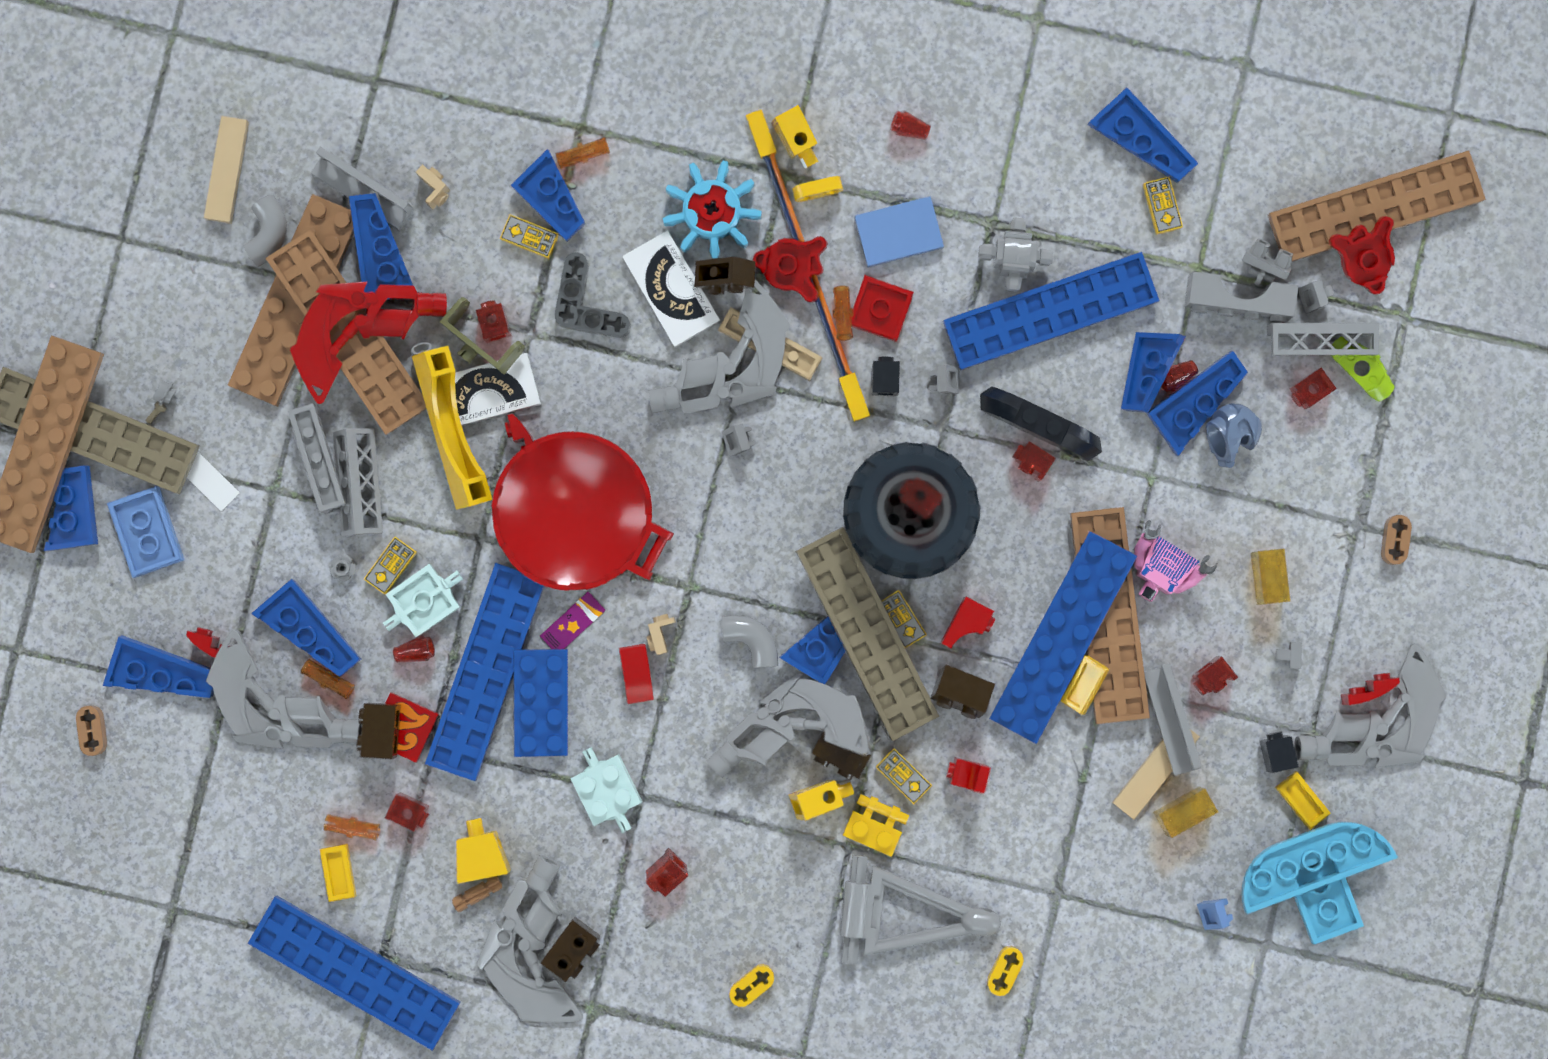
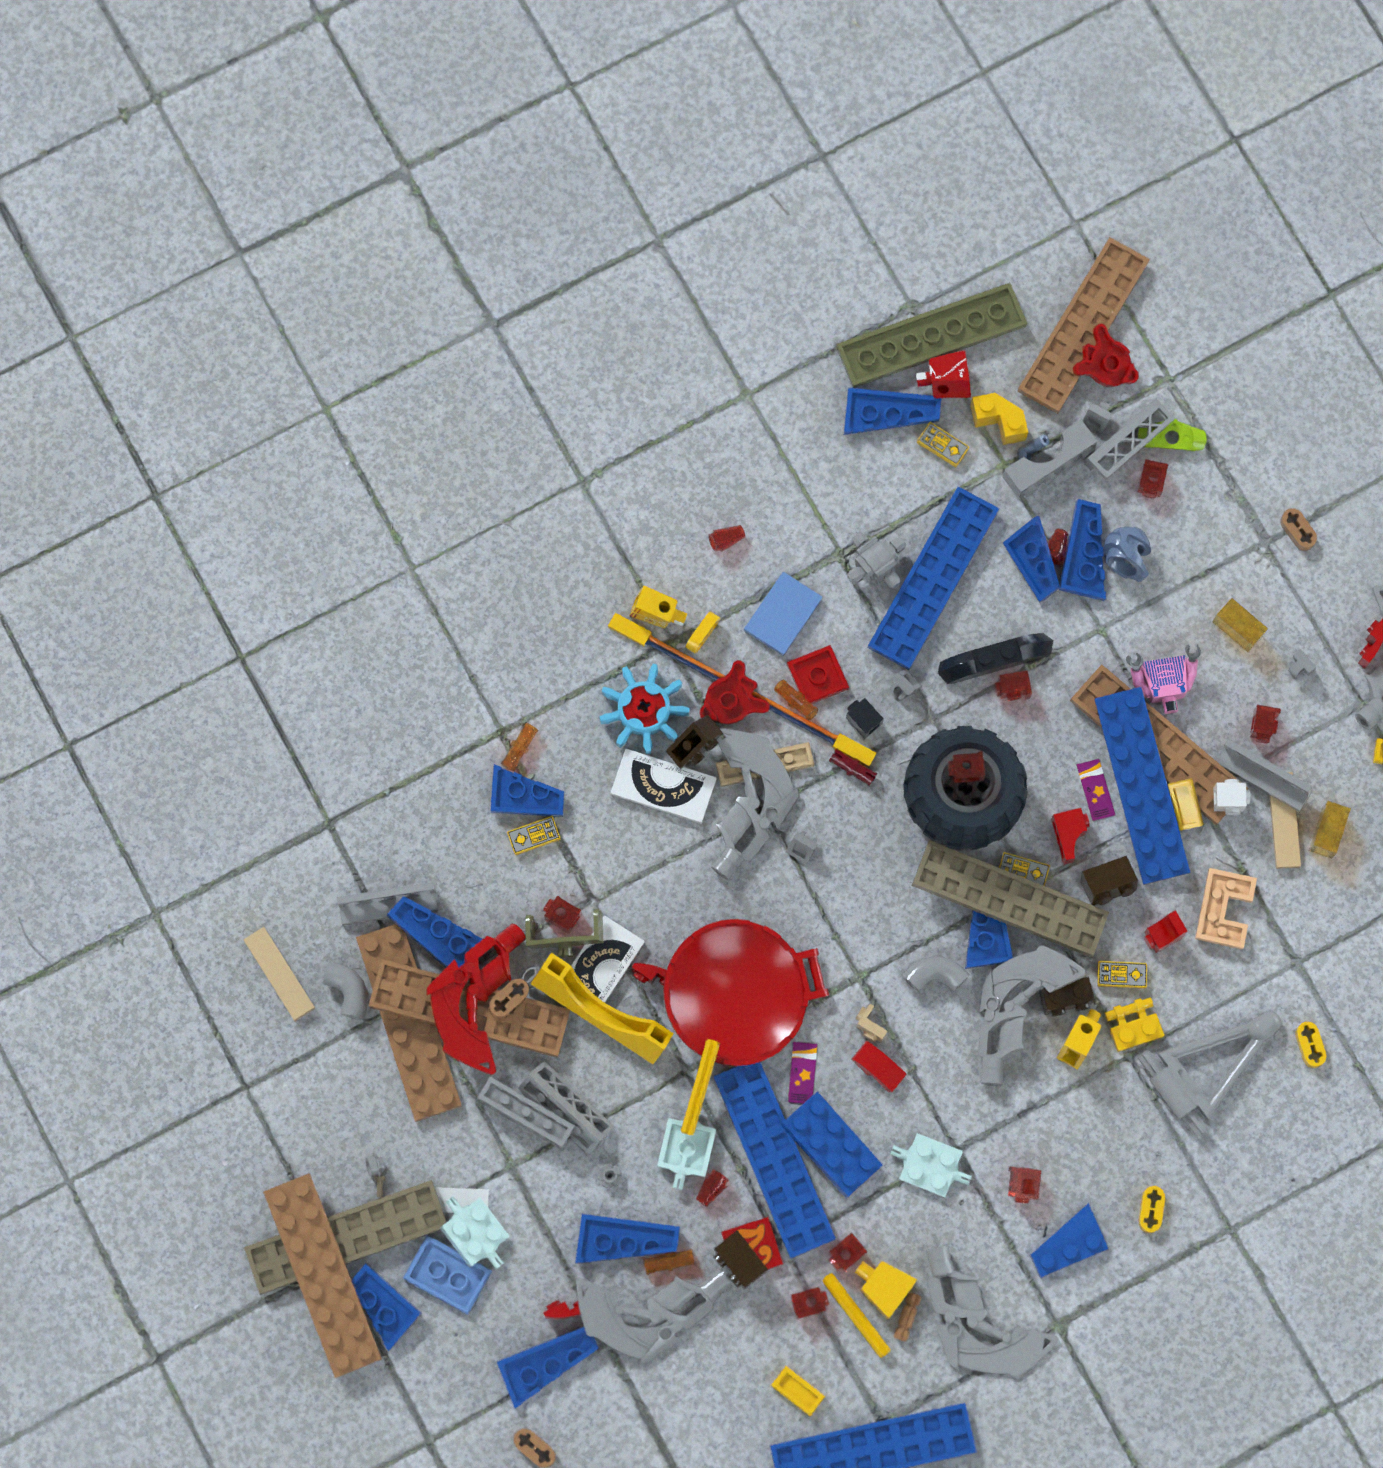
camera: 45 degrees left, 10 degrees down
(194, 517) = (474, 1232): none -> light aqua plate
(352, 827) = (779, 1349): clear orange pin -> none
(384, 345) = (512, 1002): none -> medium nougat beam
(390, 565) = (641, 1144): tile -> none
(433, 179) = (433, 854): tan bracket -> none
(437, 855) = (856, 1315): none -> yellow axle
(472, 562) = (700, 1087): none -> yellow axle
(484, 803) = (855, 1249): none -> clear red brick
(570, 949) = (1007, 1295): dark brown brick -> none
(581, 312) = (615, 855): dark grey beam -> none
(660, 953) = (1070, 1244): none -> blue wing
(839, 410) = (853, 767): none -> dark red pin
(1023, 605) = (1095, 789): none -> magenta sticker
(1045, 778) = (1212, 923): none -> light nougat plate
(1127, 713) = (1231, 796): none -> white brick
(1218, 150) = (947, 376): none -> red torso
(1232, 213) = (995, 409): none -> yellow brick
(1236, 273) = (1032, 447): none -> sand blue arm
(1239, 103) = (931, 335): none -> olive plate
(1278, 752) = (1353, 736): black brick -> none
(1279, 267) = (1056, 418): light grey hips -> none

